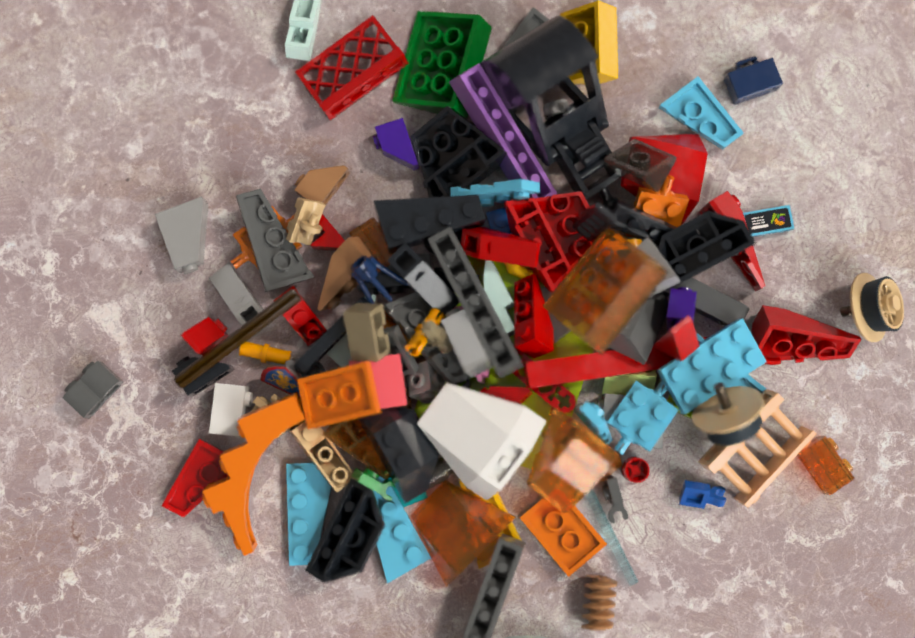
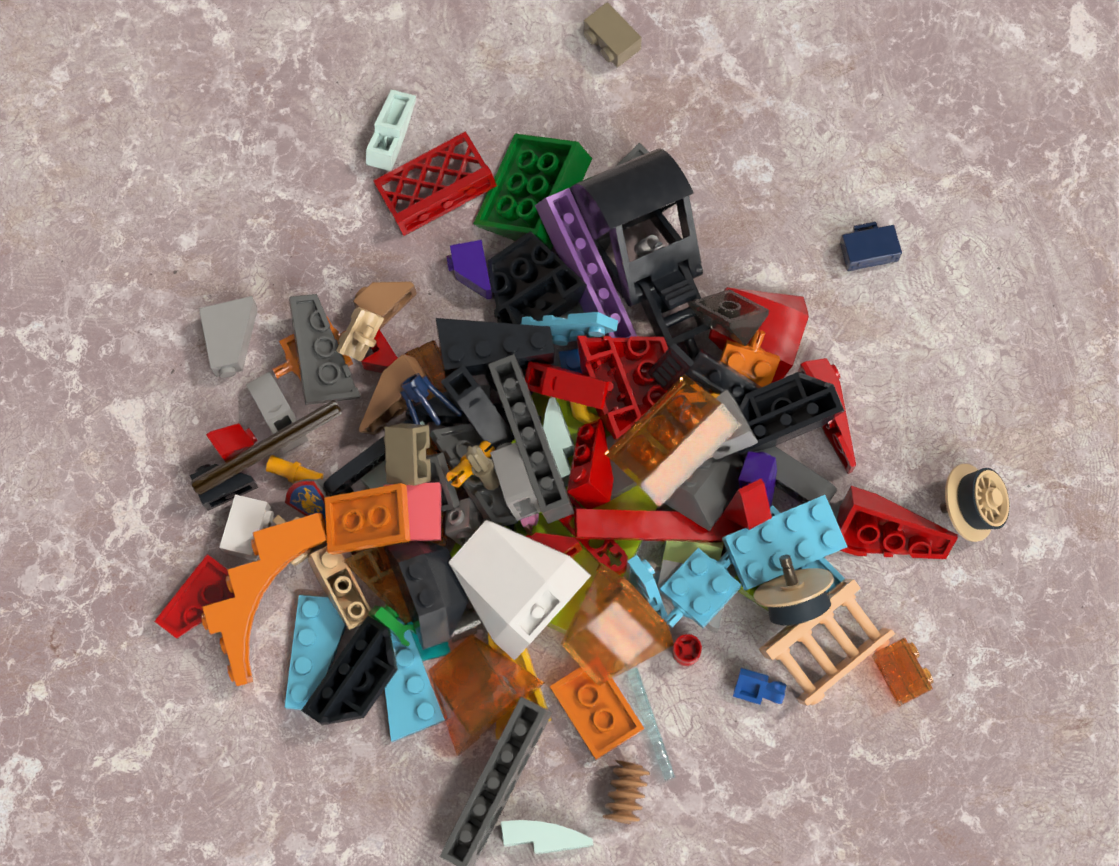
camera: 10 degrees right, 10 degrees down
(92, 389) = (100, 487): dark grey brick -> none
(304, 320) = (341, 440): red slope -> none
(599, 26) = (707, 174): yellow slope -> none
(612, 492) = (658, 672): dark grey plate -> none
(702, 113) = (810, 275): medium azure wing -> none
(769, 220) = (870, 399): tile -> none

